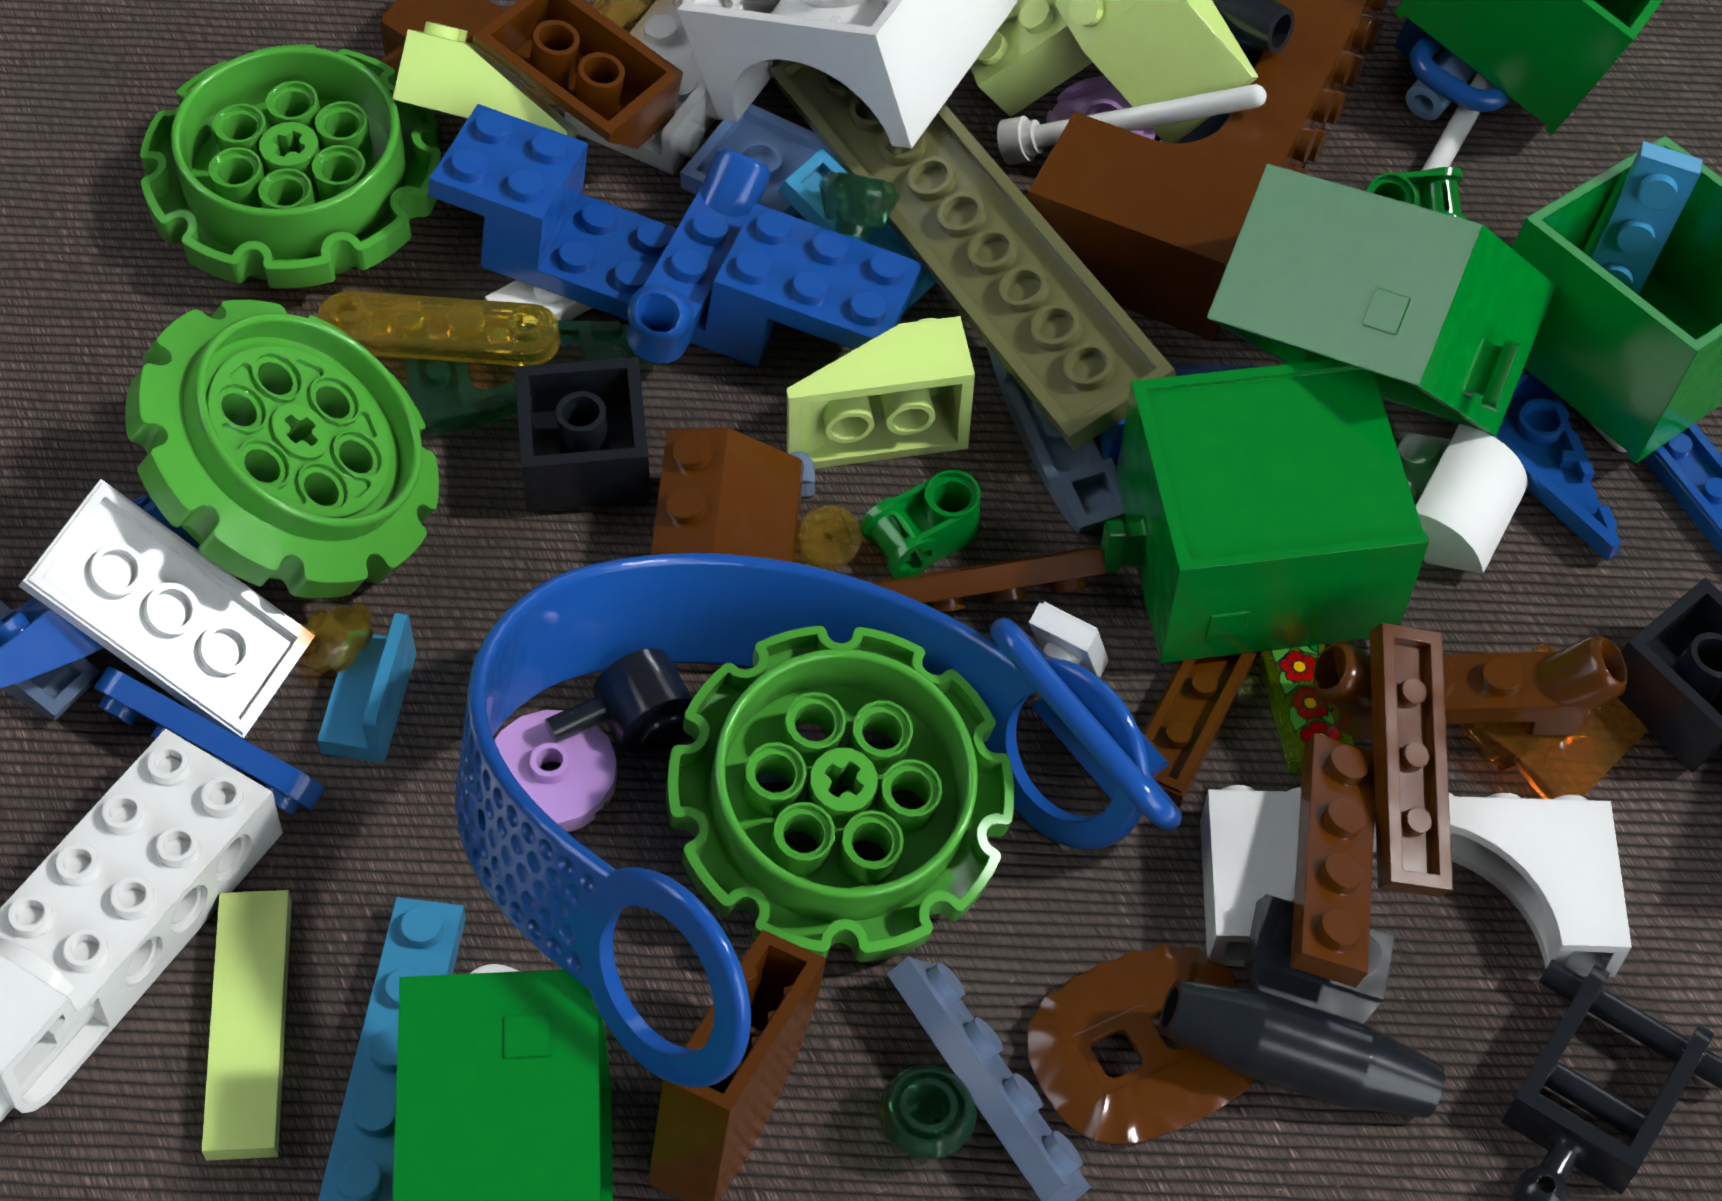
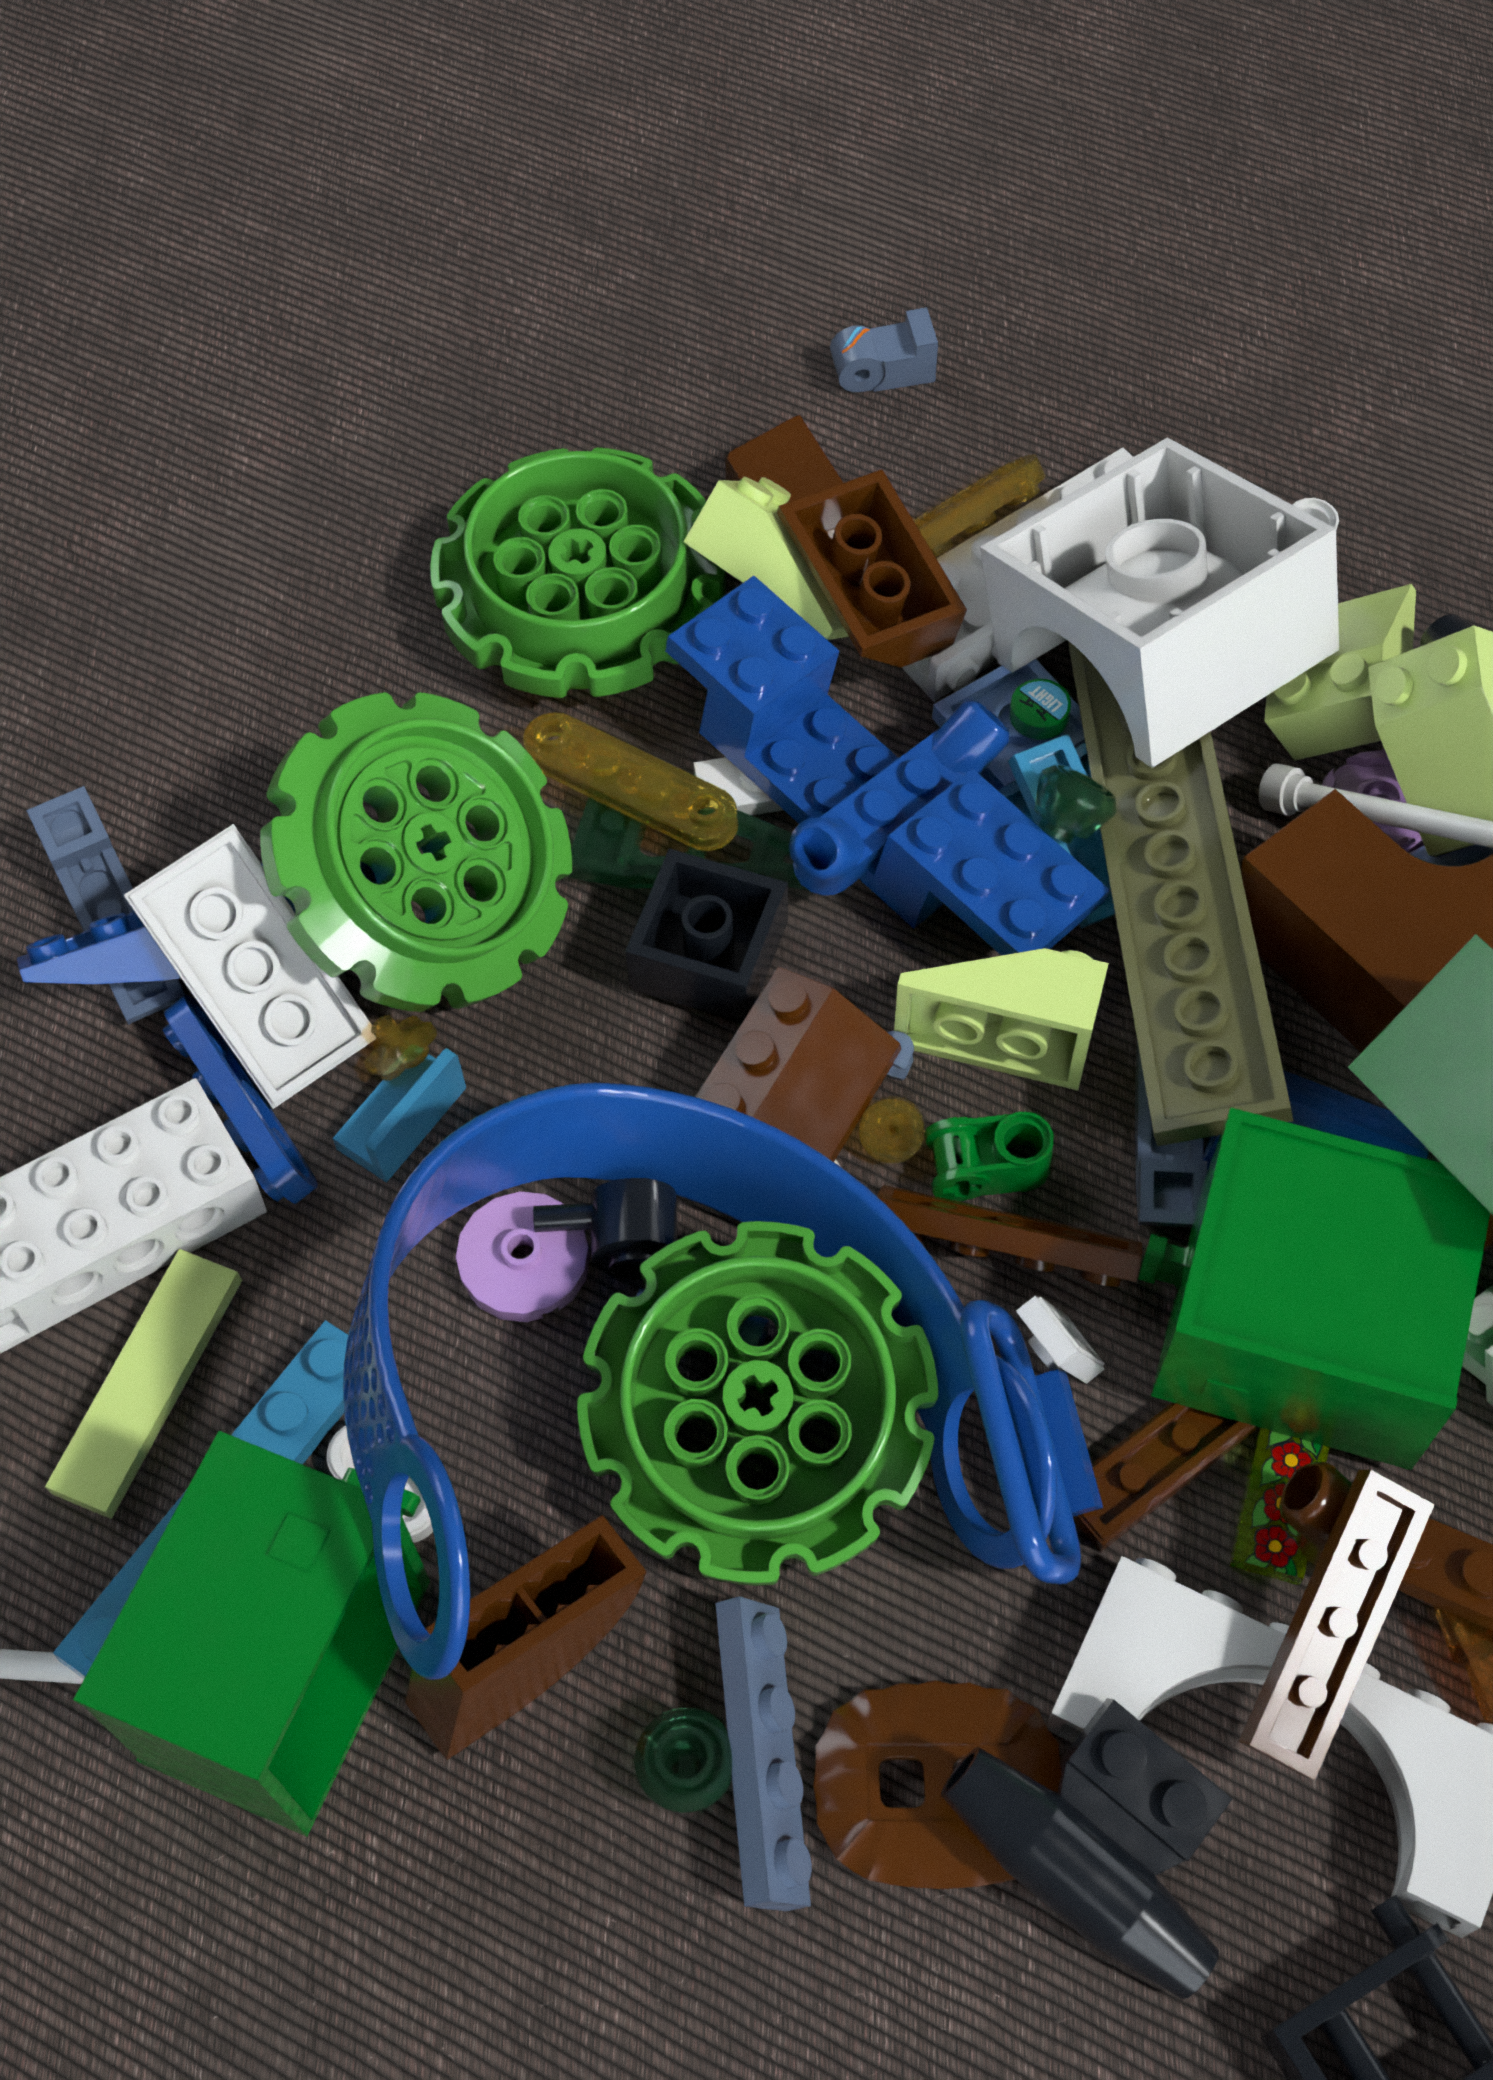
camera: 30 degrees right, 5 degrees up
(779, 141) = (1040, 709): none -> tile
(1334, 862) = (1201, 1697): reddish brown plate -> none

